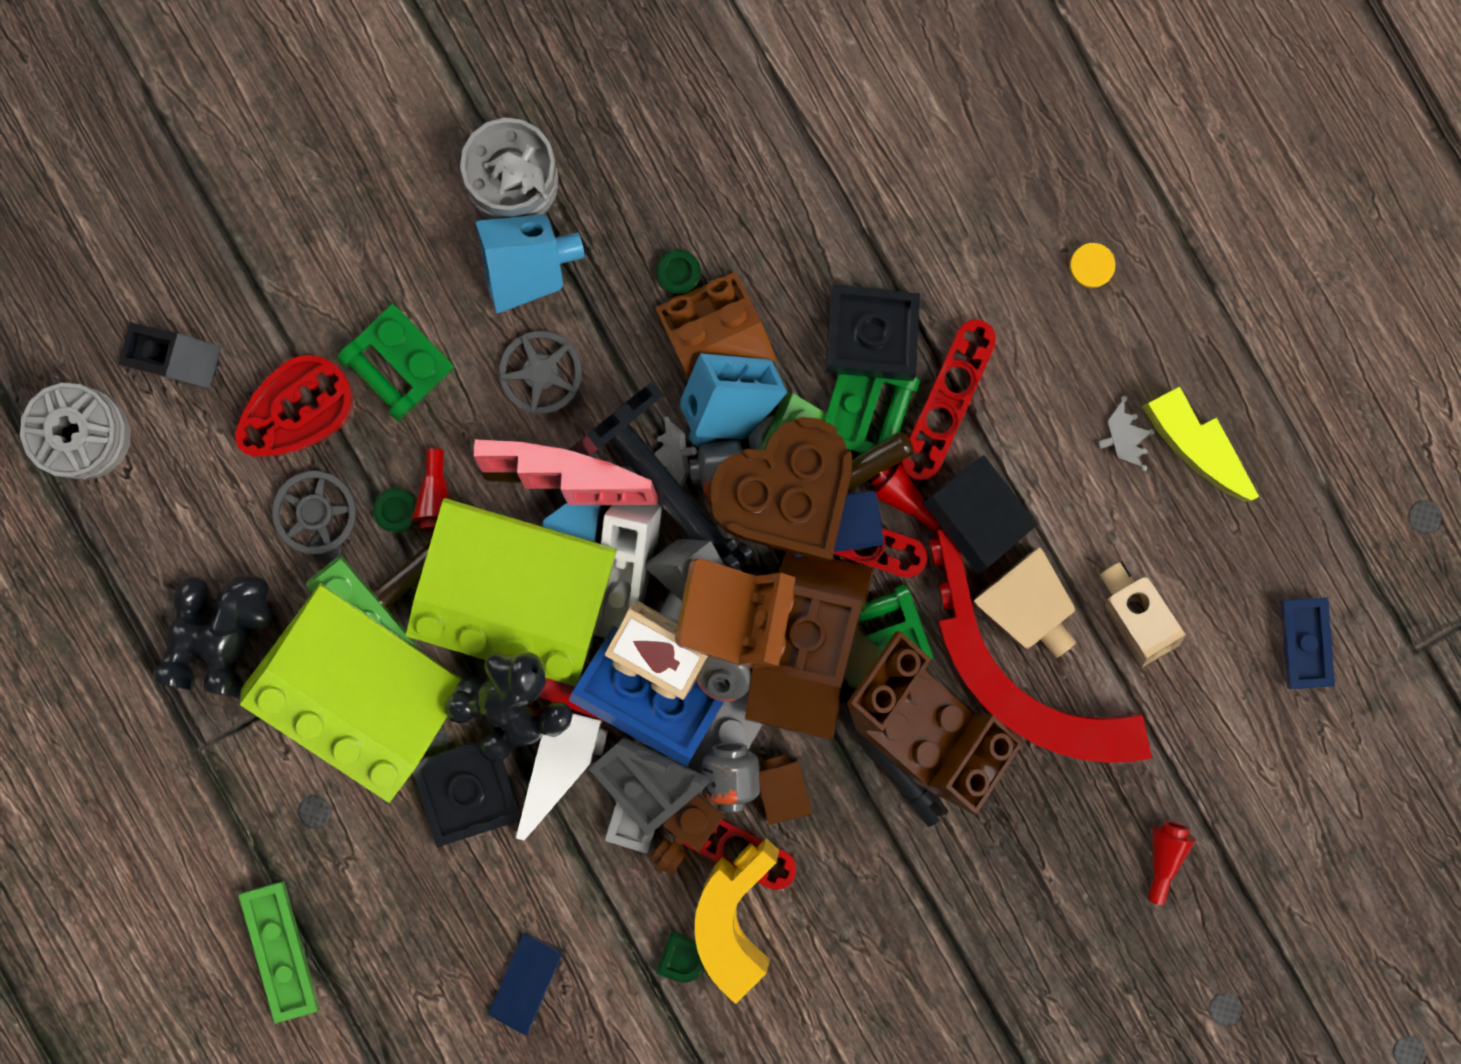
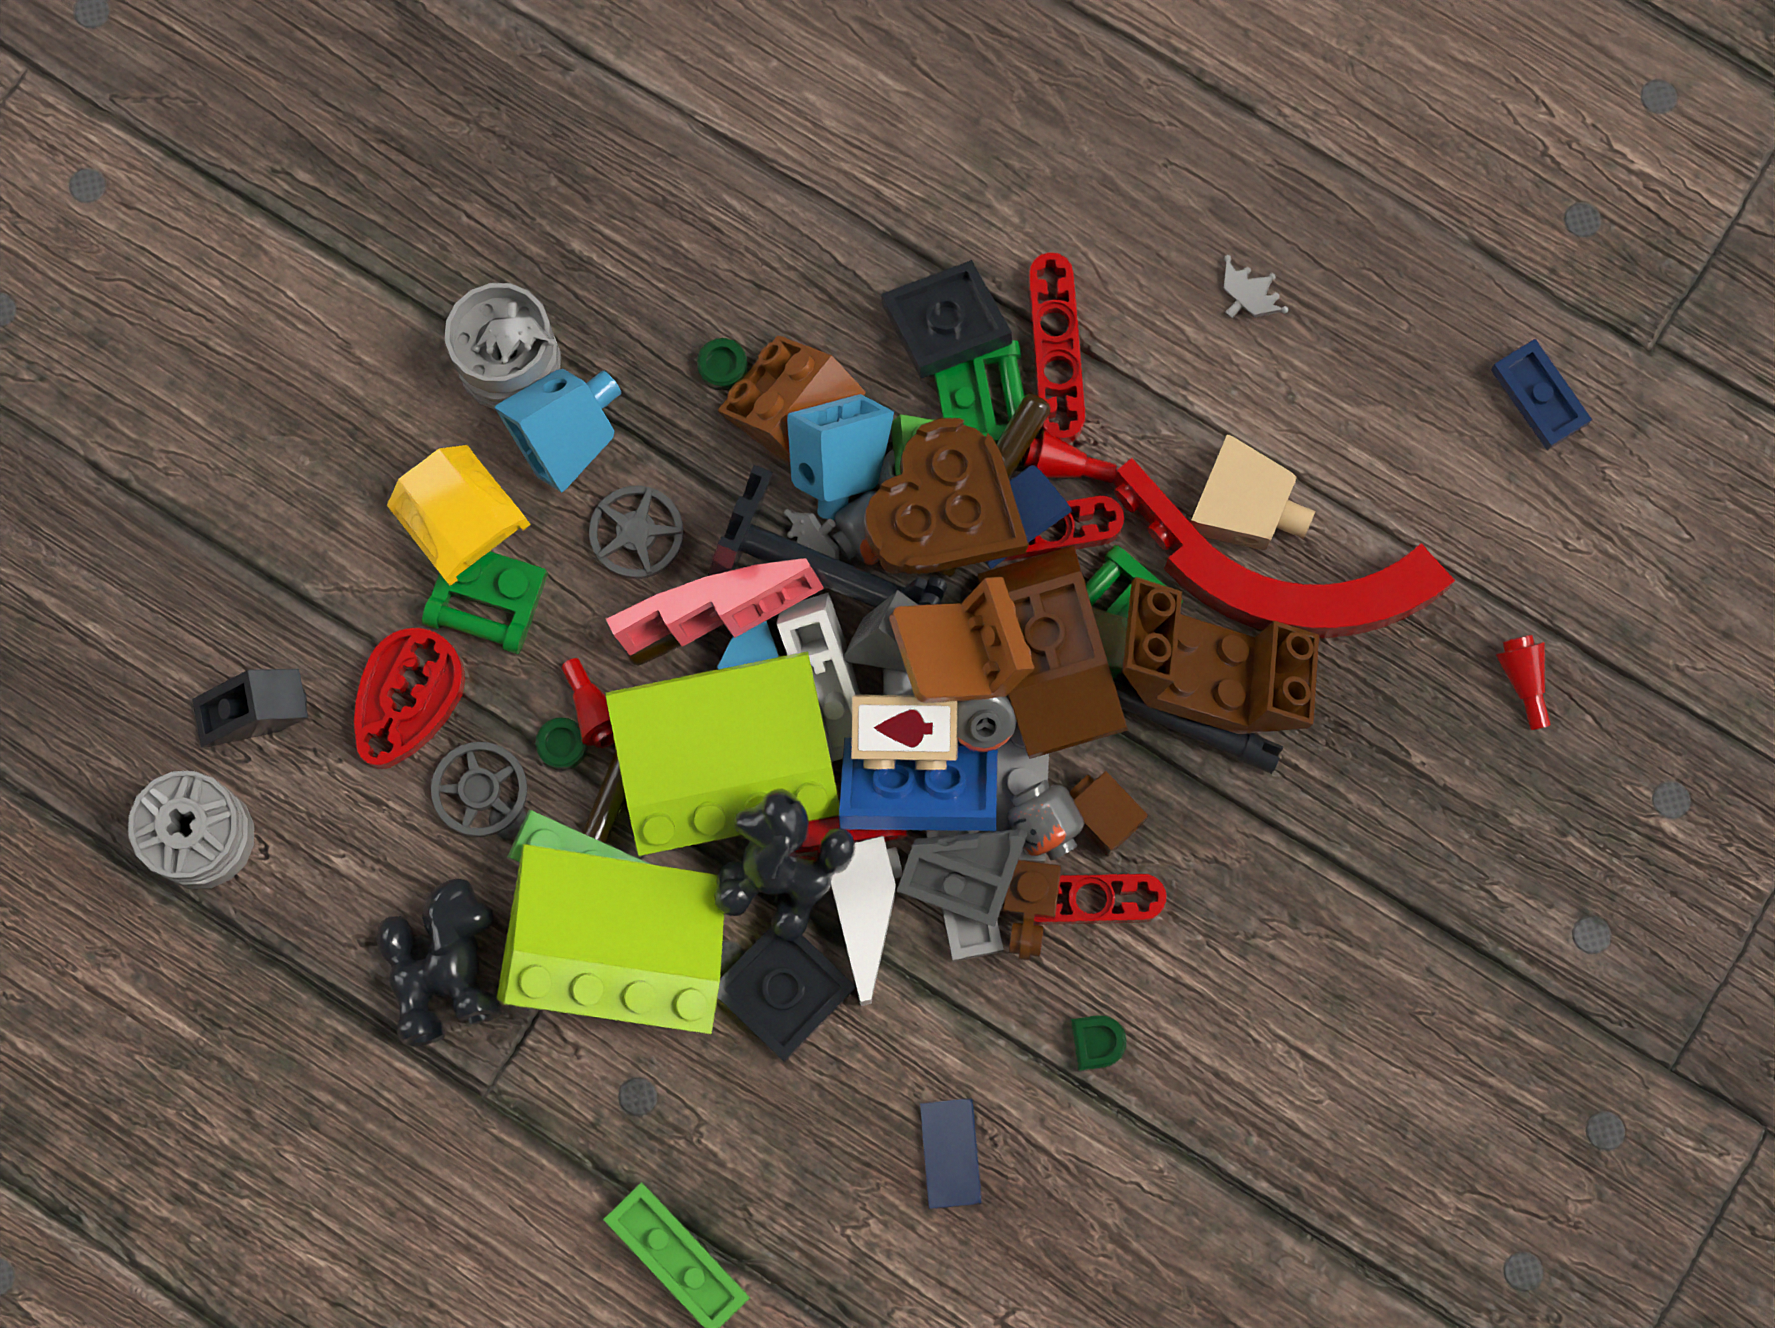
camera: 25 degrees left, 10 degrees down
(406, 284) = (454, 509): none -> yellow slope
(721, 944) = (1134, 1004): yellow arch -> none
(980, 514) = (1150, 435): black tile -> none
(1092, 265) = (1124, 149): yellow tile -> none
(1148, 633) = (1365, 450): tan torso -> none
(1200, 446) = (1328, 261): neon yellow slope -> none

